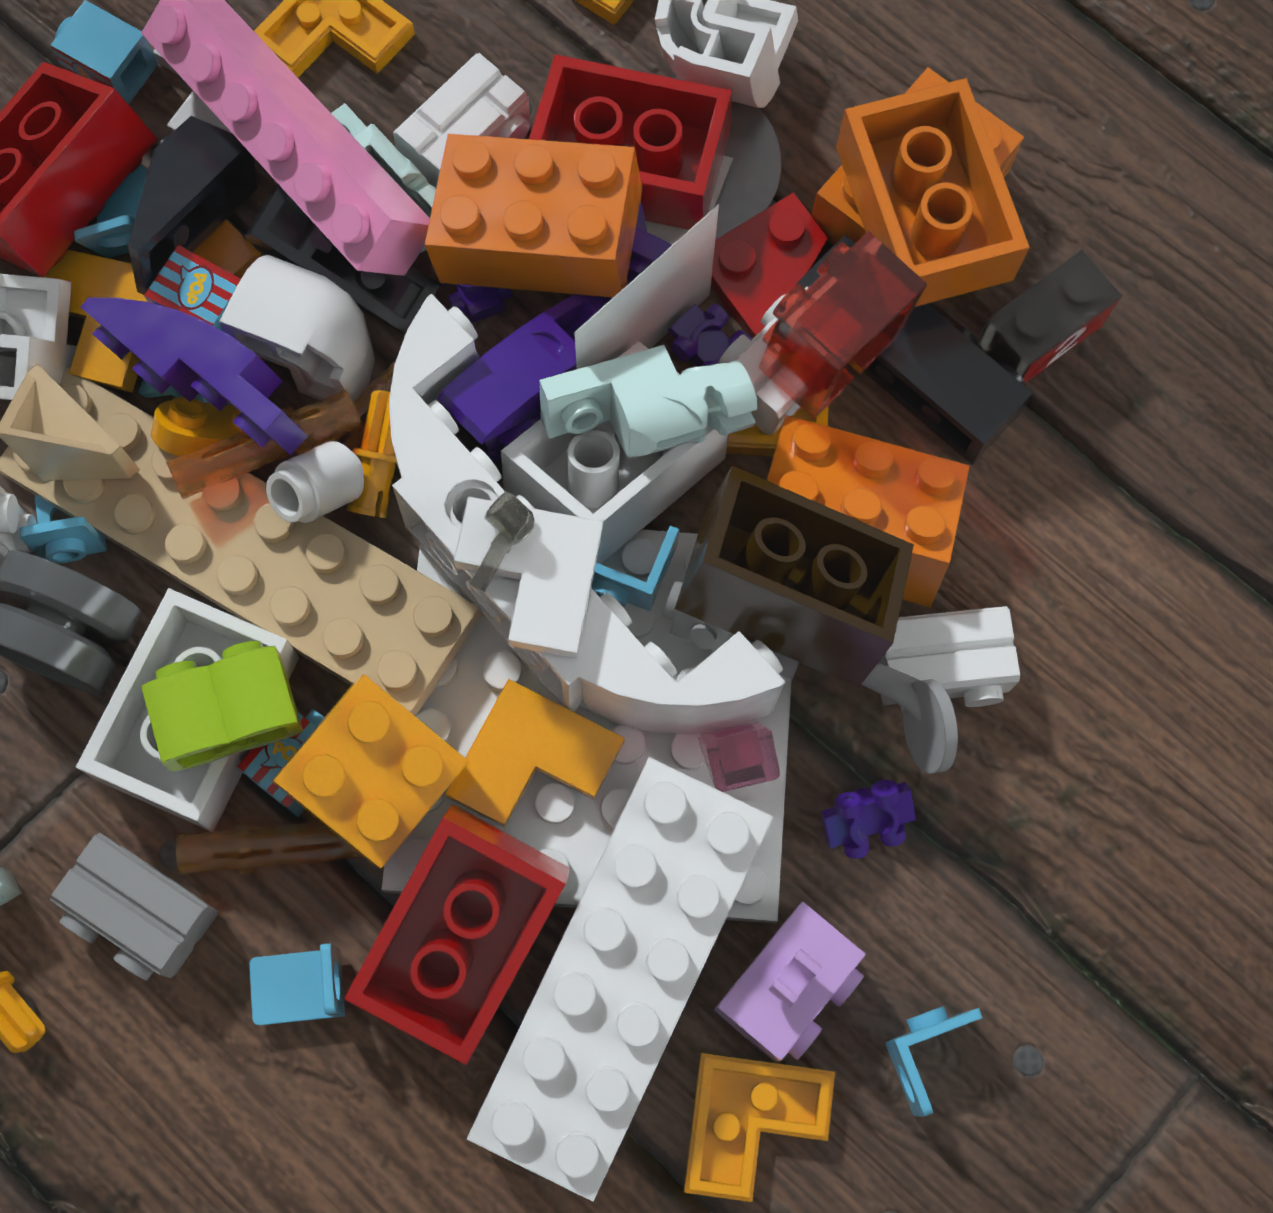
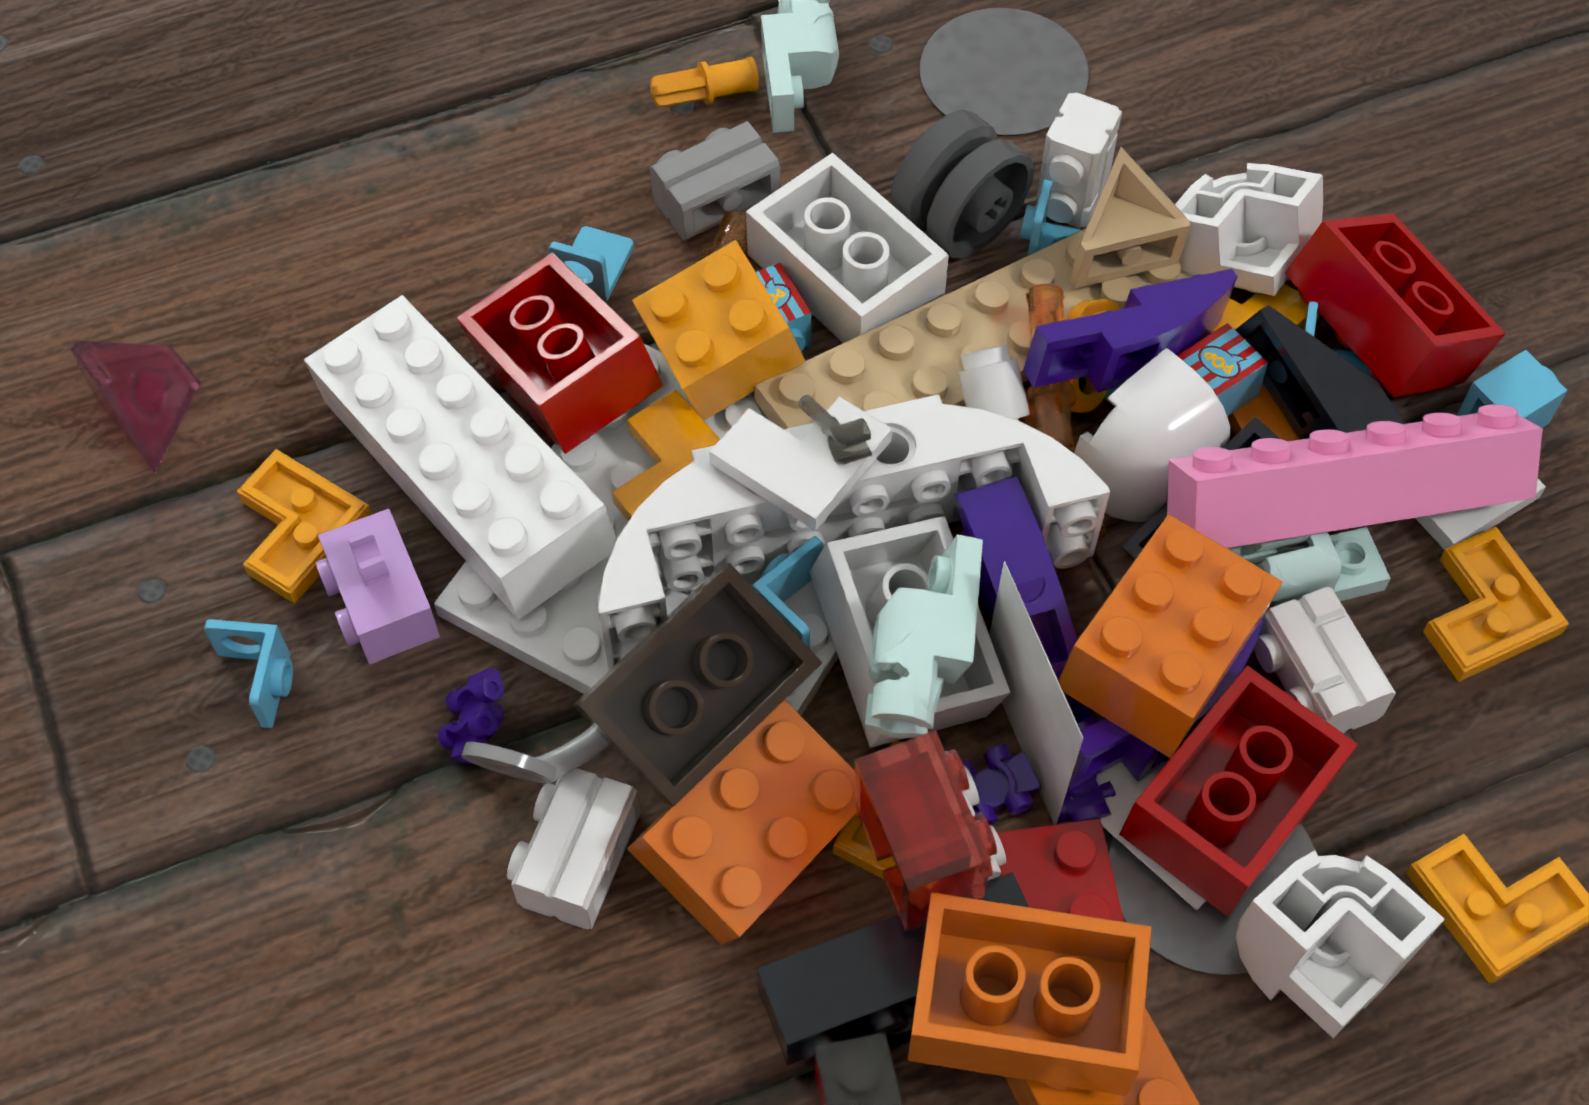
camera: 120 degrees right, 15 degrees down
(220, 706) = (820, 240): lime brick -> none
(740, 756) = (572, 609): clear pink slope -> none

